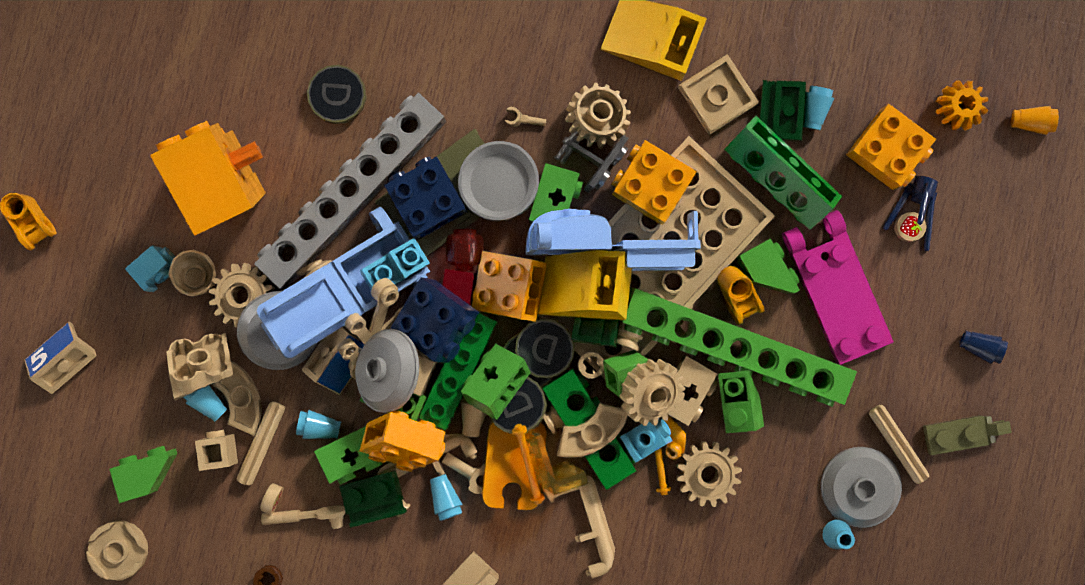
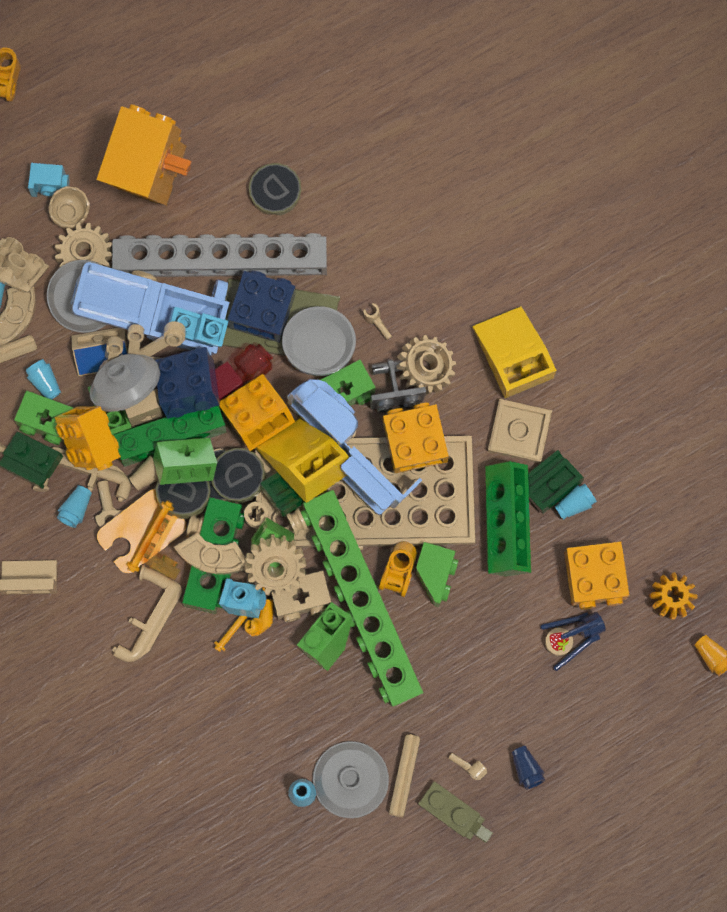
camera: 45 degrees right, 10 degrees down
(716, 487) = (259, 649): tan gear -> none
(839, 292) = (467, 637): dark pink hinge -> none
(947, 386) = (476, 771): none -> tan hand

